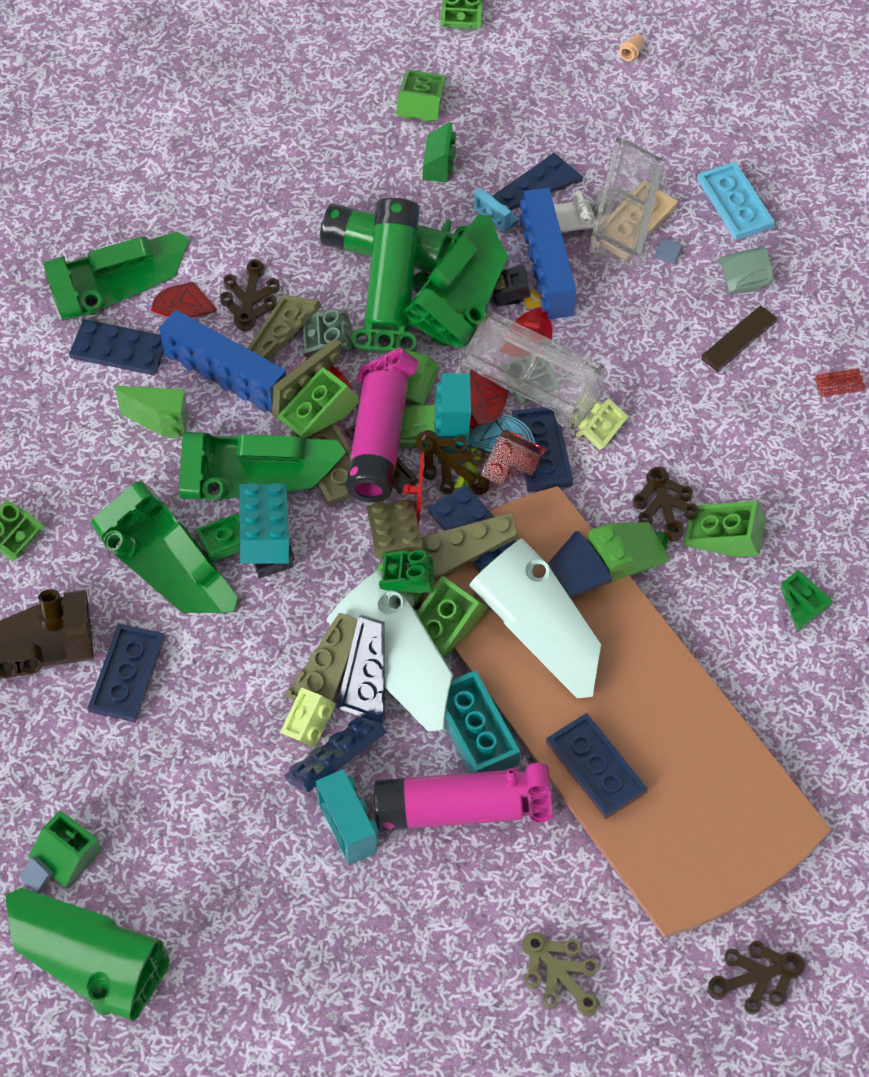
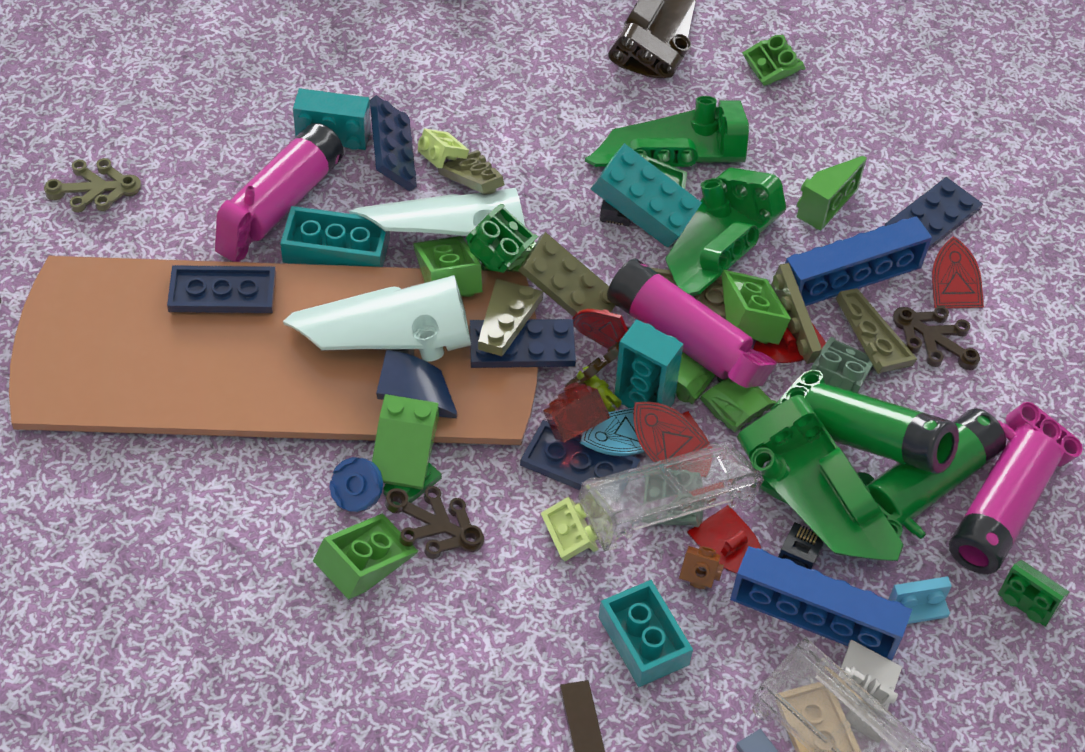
camera: 120 degrees right, 5 degrees down
(113, 273) = (1025, 241): green panel -> none
(126, 672) = (581, 71): dark blue plate -> none
(364, 188) = (1012, 488): none -> dark pink piece
(365, 672) = (442, 186): wing -> none
(549, 173) = (944, 686): dark blue wing -> none
(571, 332) = (698, 558): none -> dark orange brick
(647, 336) = (645, 633): none -> teal brick
(680, 565) = (356, 484): none -> blue tile
(803, 599) = (237, 570): green wing -> none

